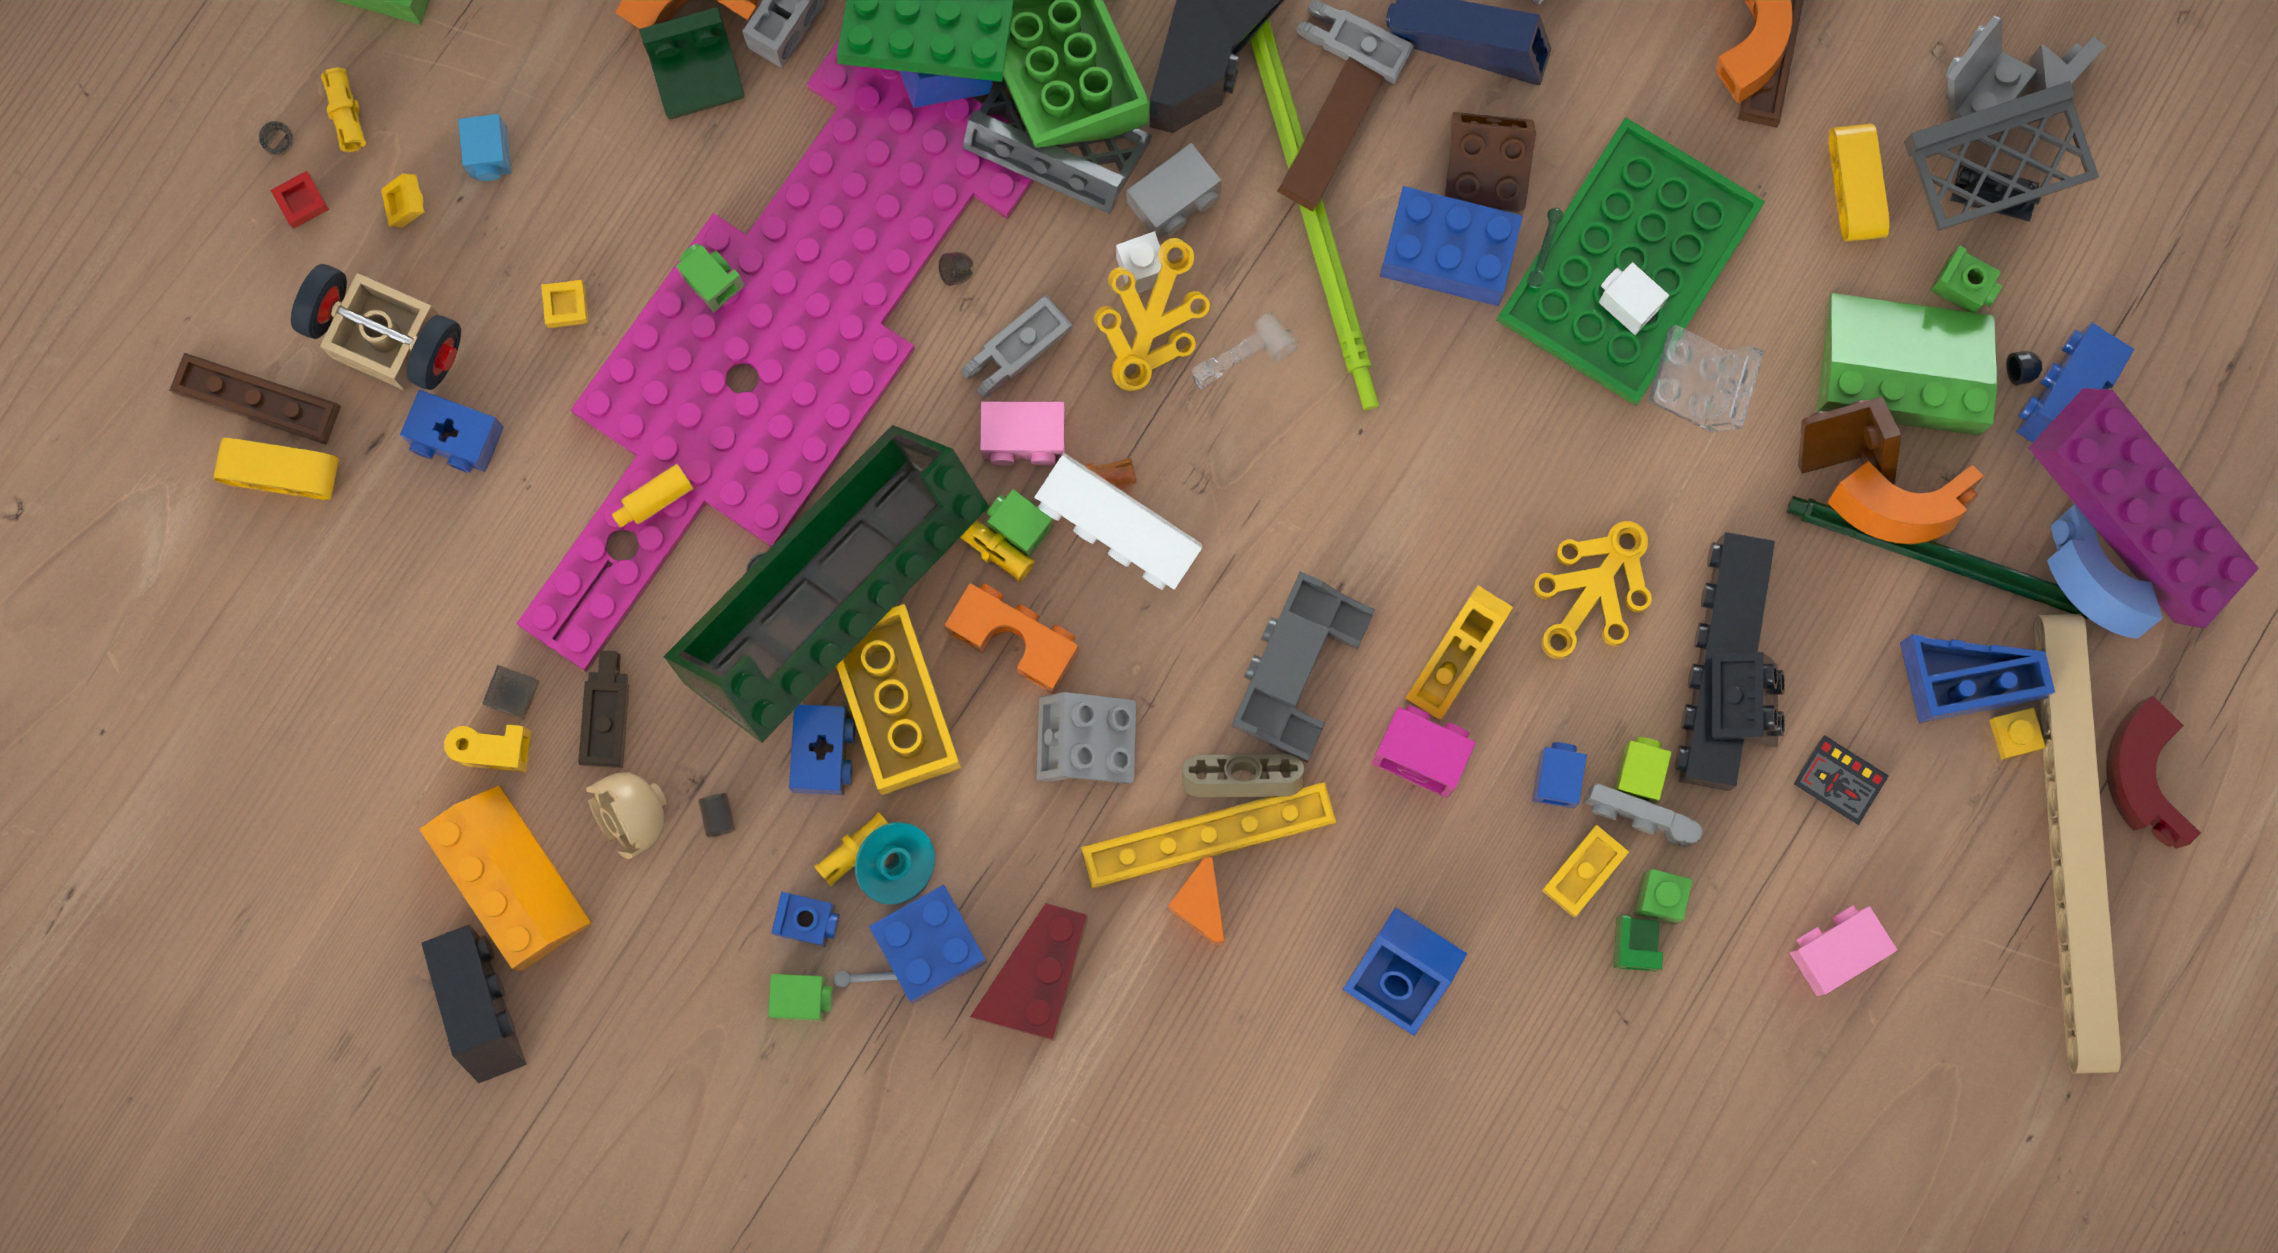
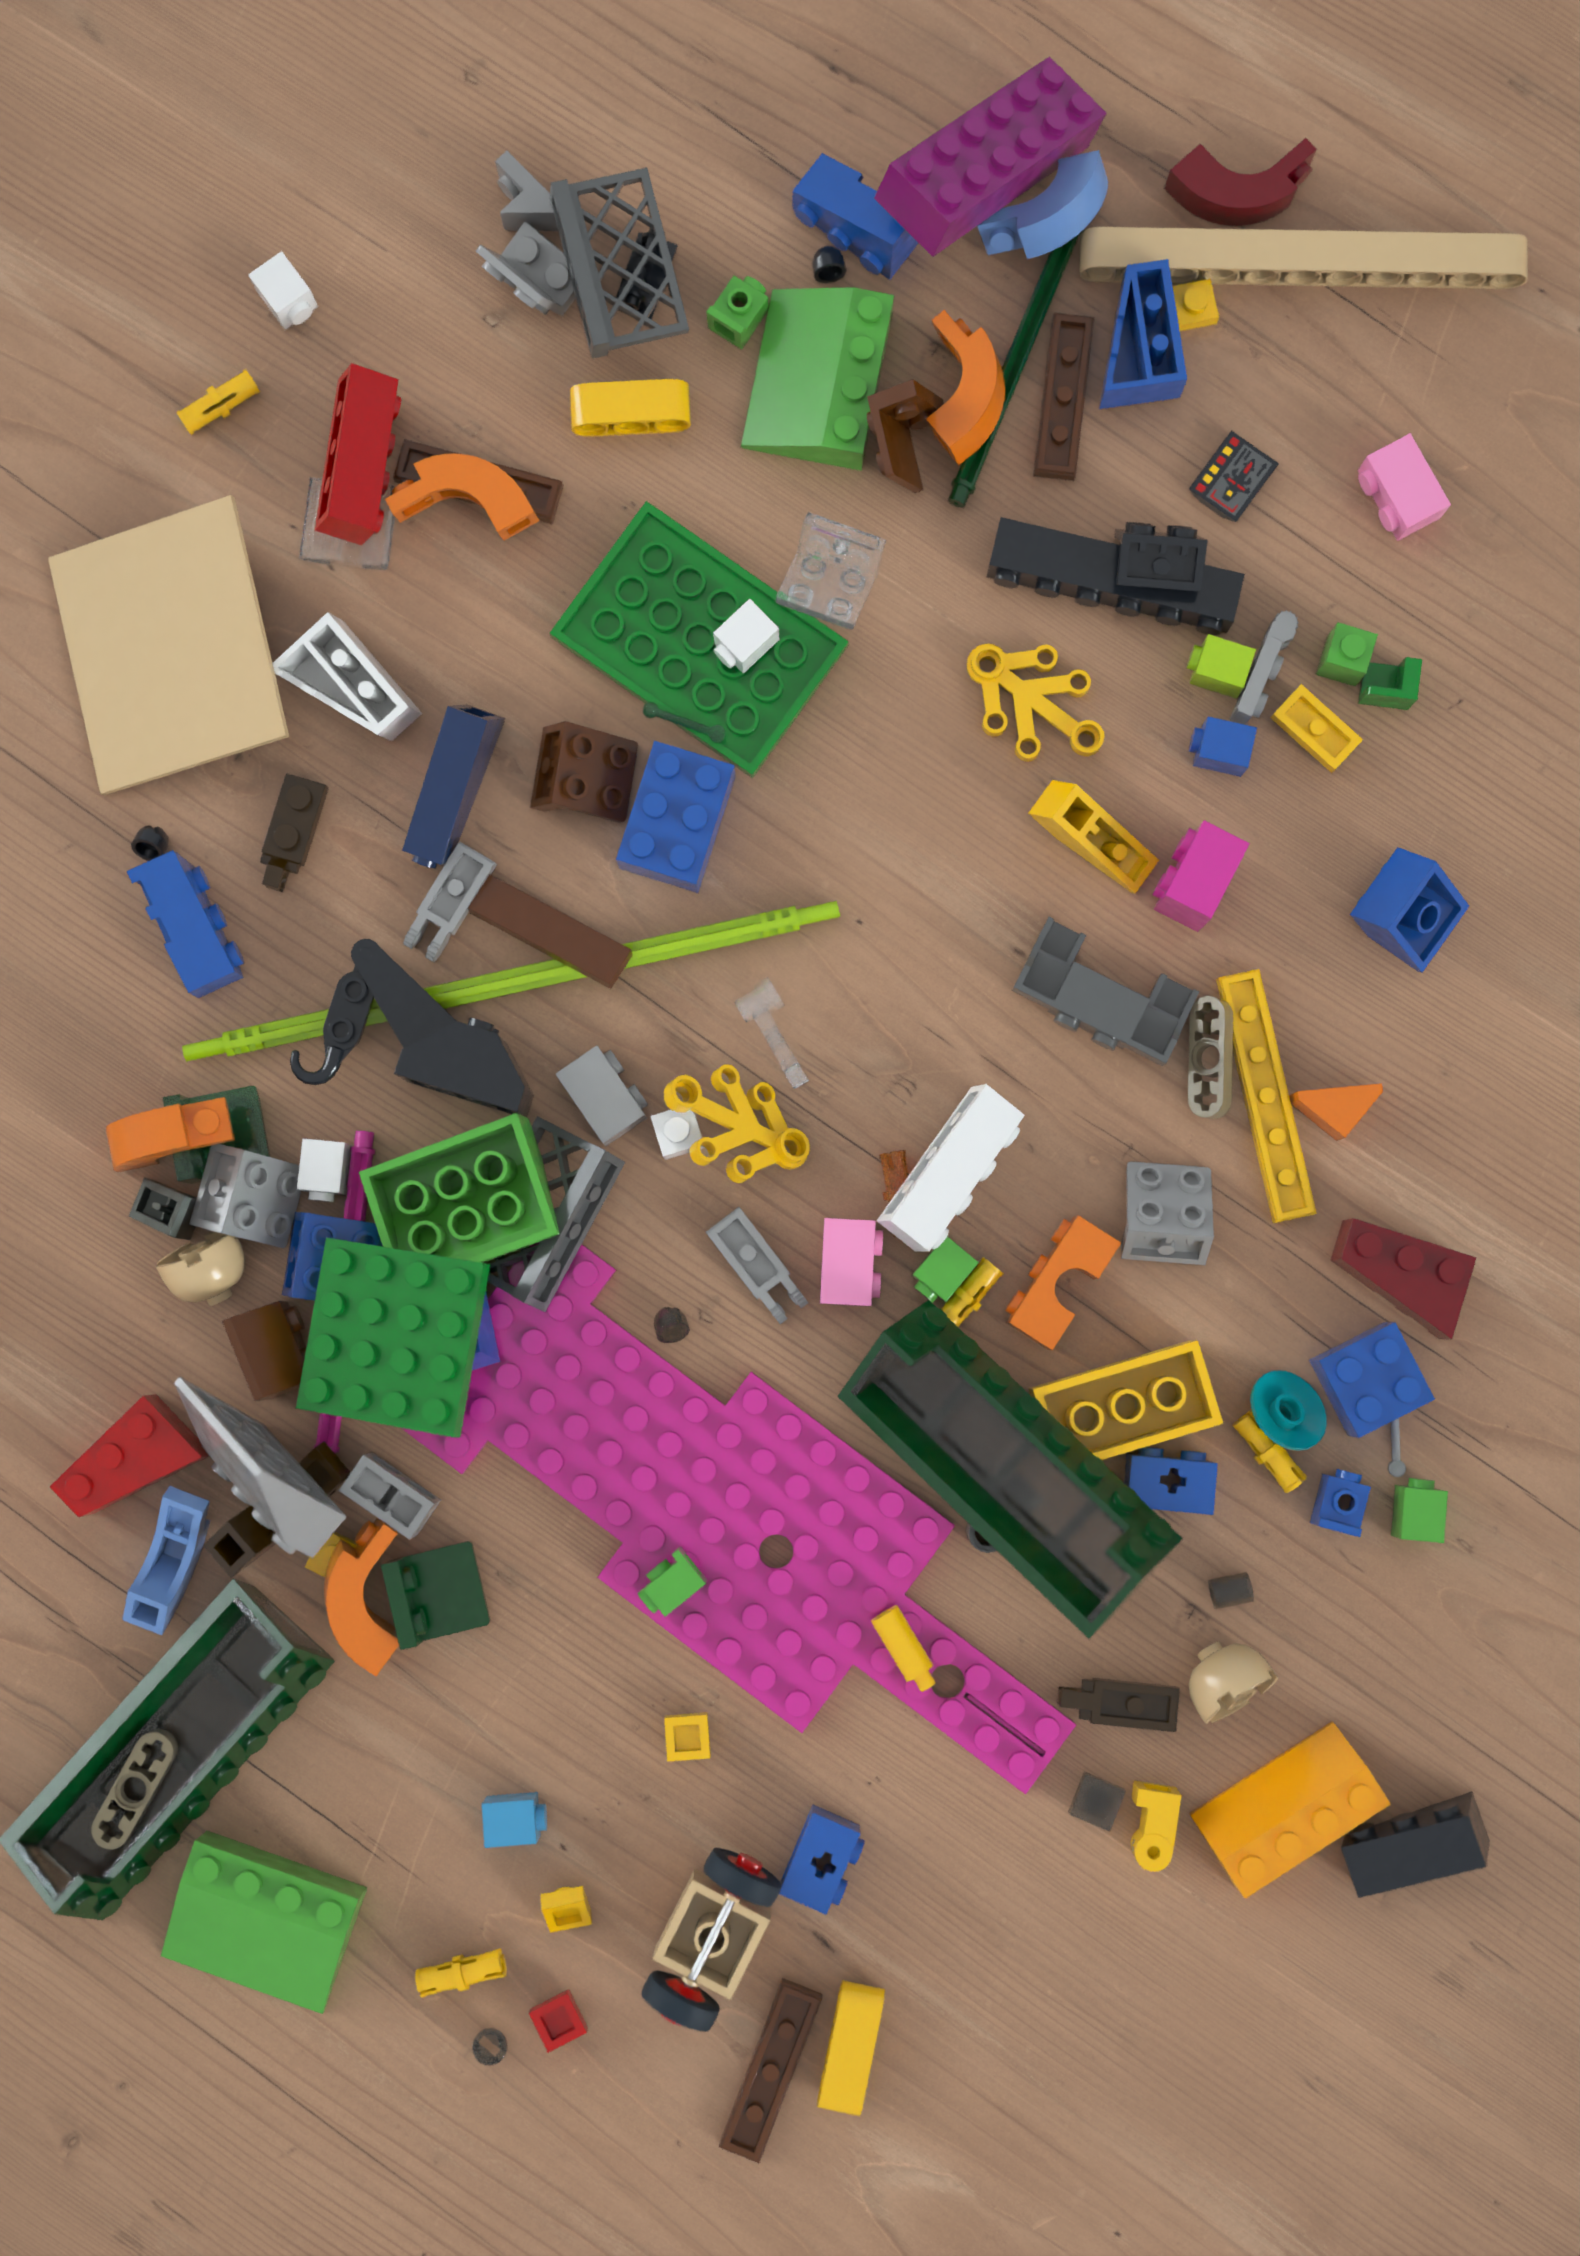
camera: 85 degrees left, 5 degrees up
(1910, 607) = (1063, 396): none -> reddish brown tile

